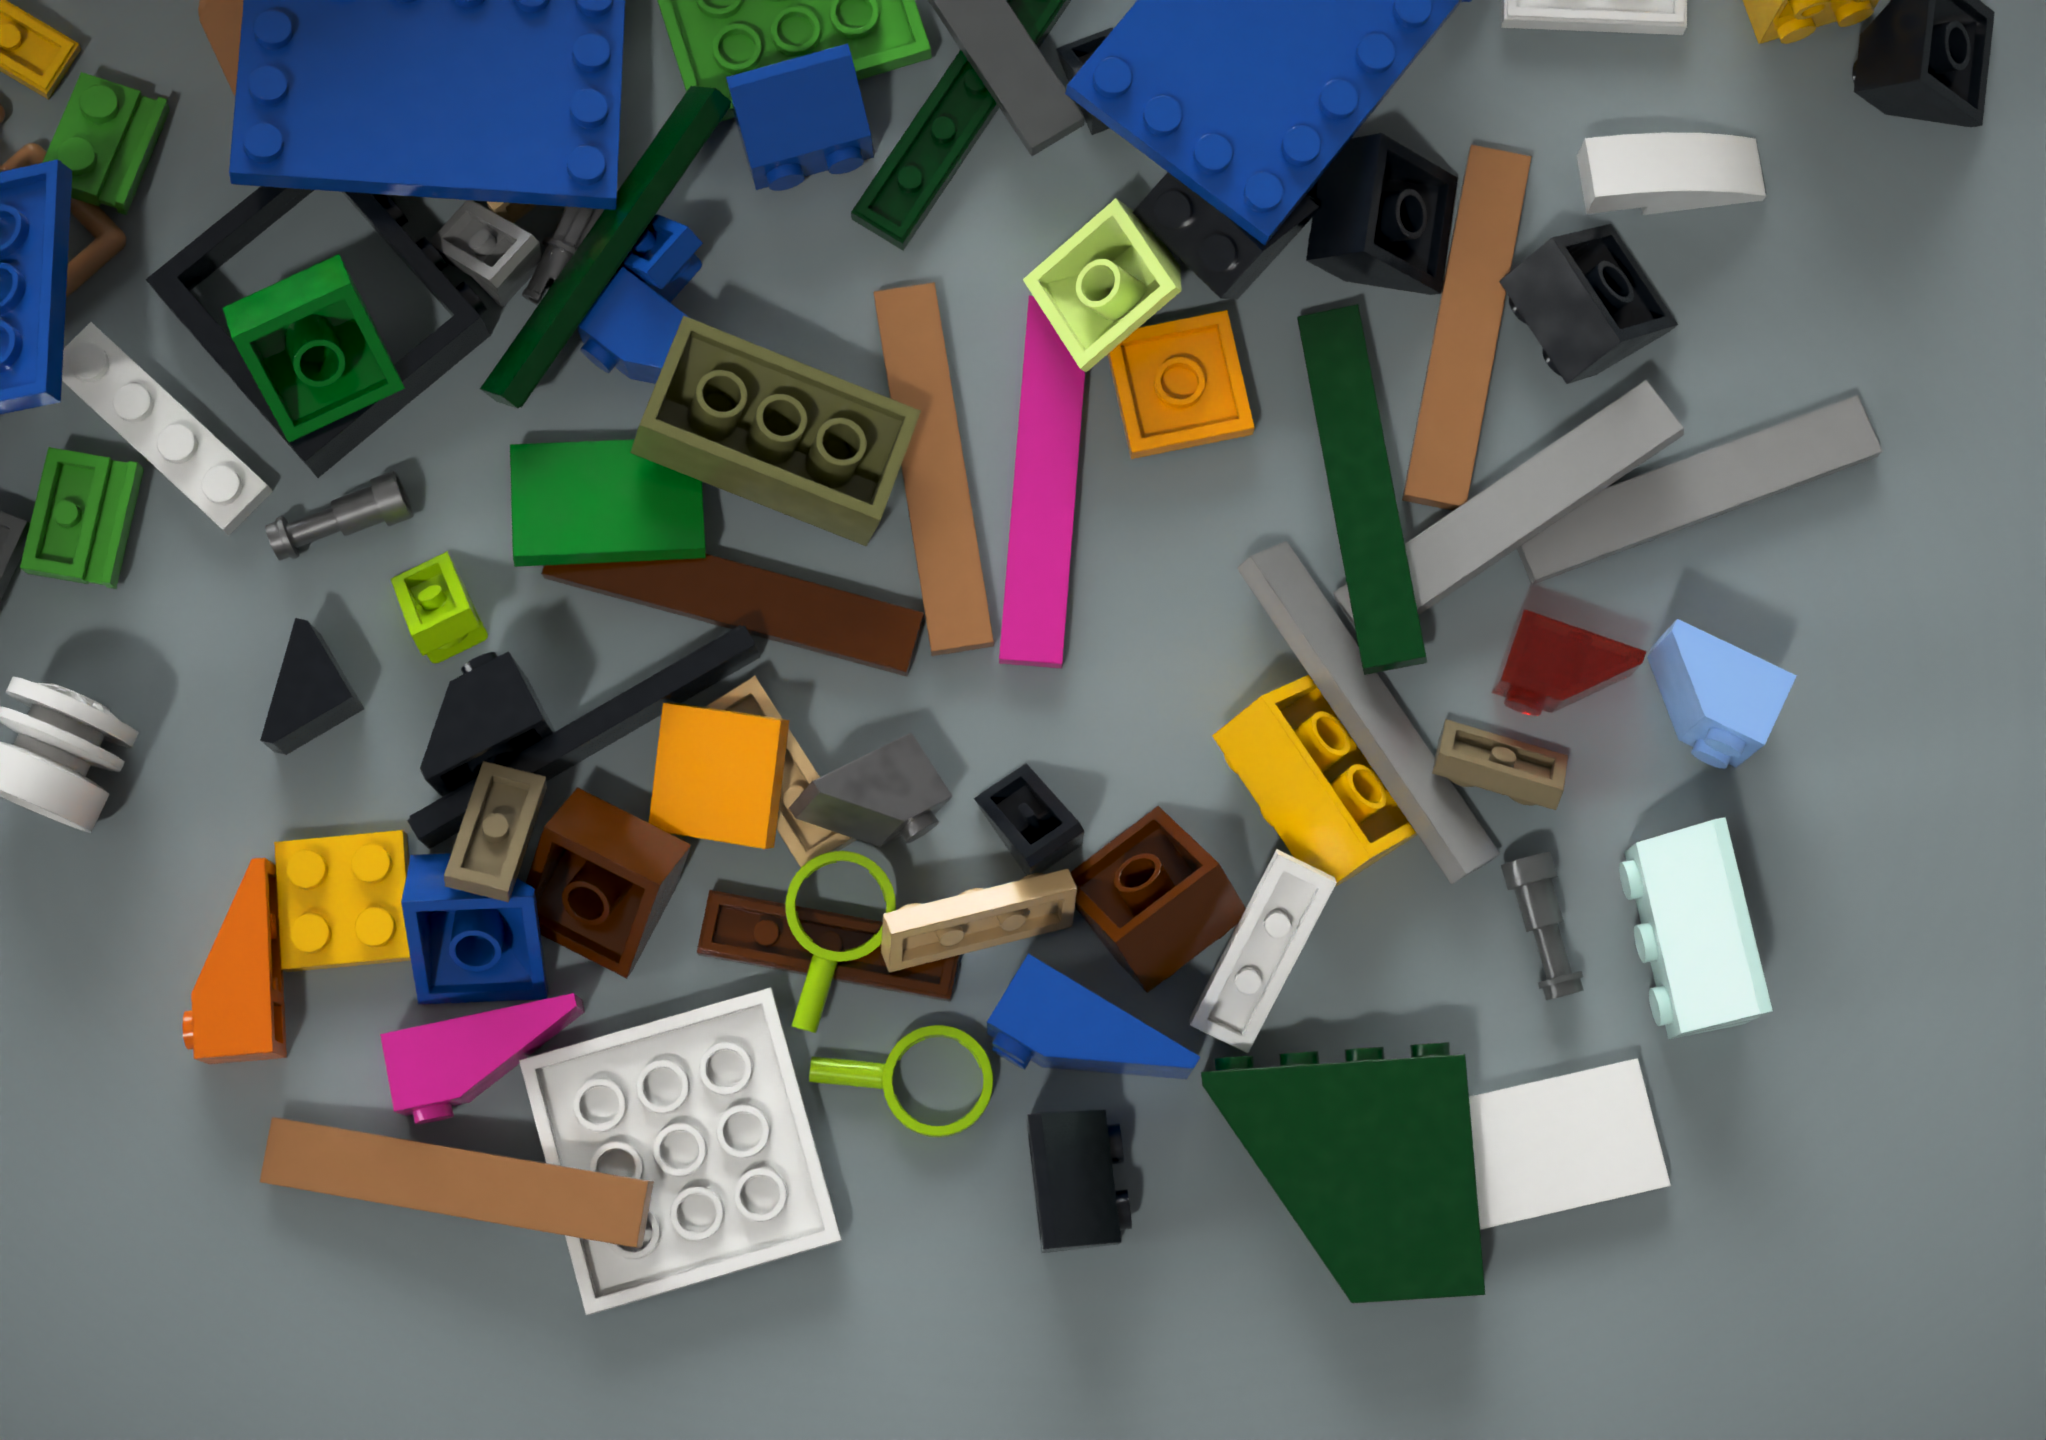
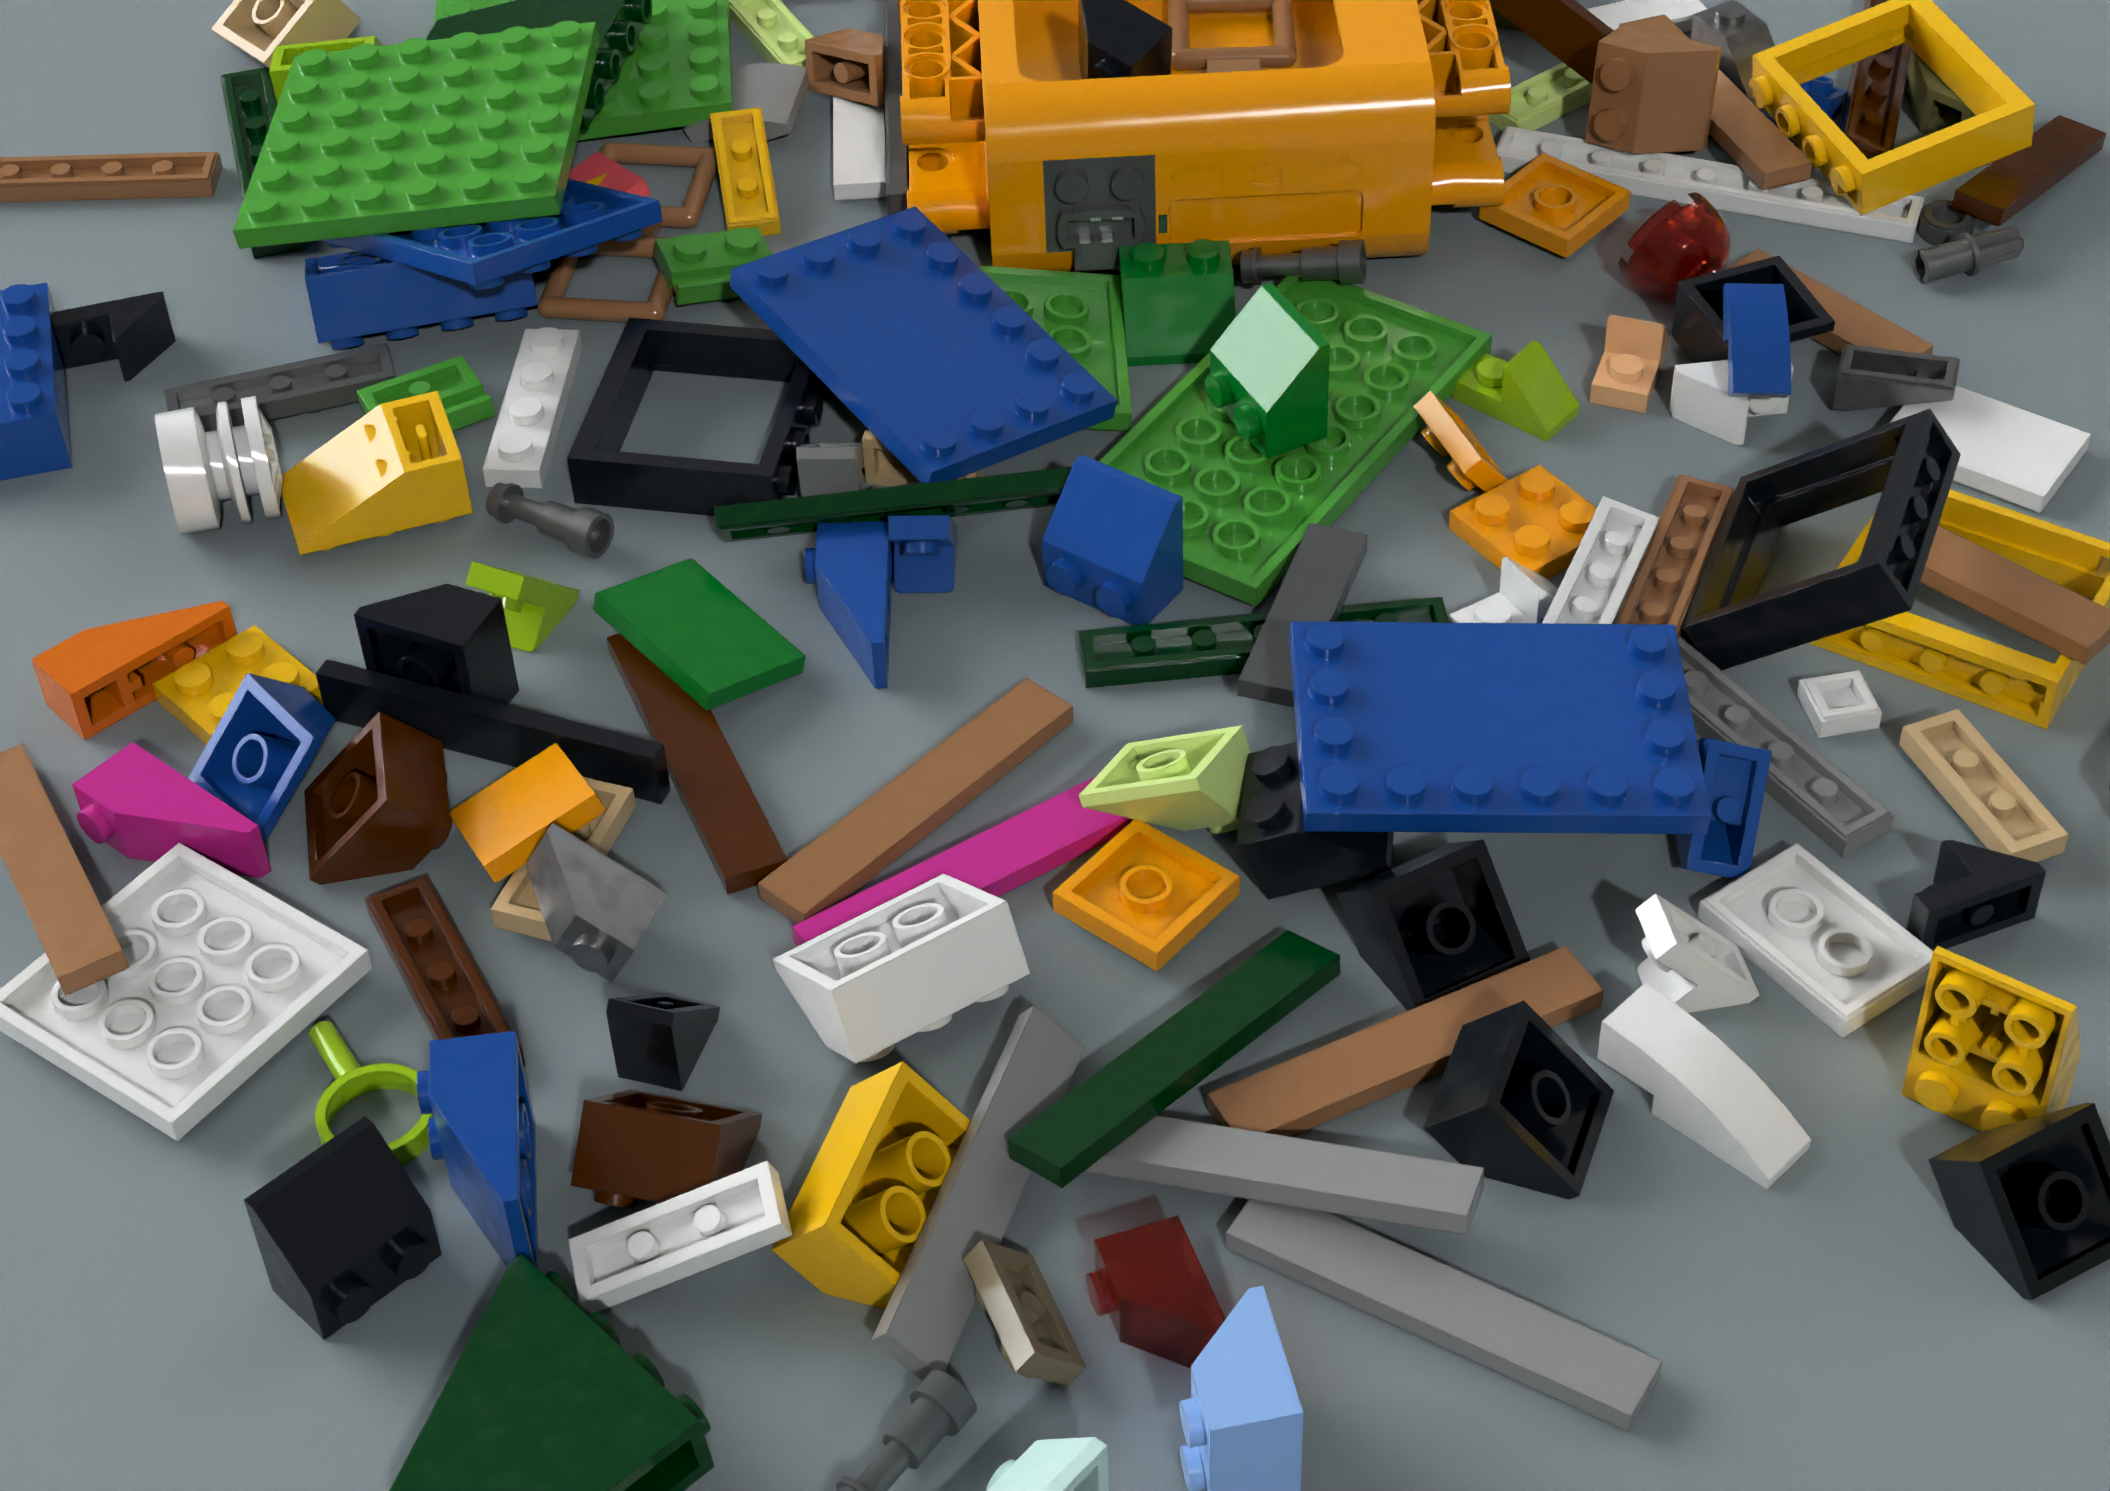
camera: 55 degrees right, 35 degrees down
(169, 628) = (378, 477): none -> yellow slope
(309, 693) = (389, 566): black slope -> none
(312, 348) = (651, 398): green slope -> none
(495, 831) = (351, 690): dark tan plate -> none
(775, 431) = (841, 668): olive slope -> none
(825, 961) = (421, 966): lime piece -> none
(978, 919) = (550, 1036): tan plate -> none
(1117, 612) = (904, 967): none -> white slope
(1559, 81) = (1691, 960): none -> white slope

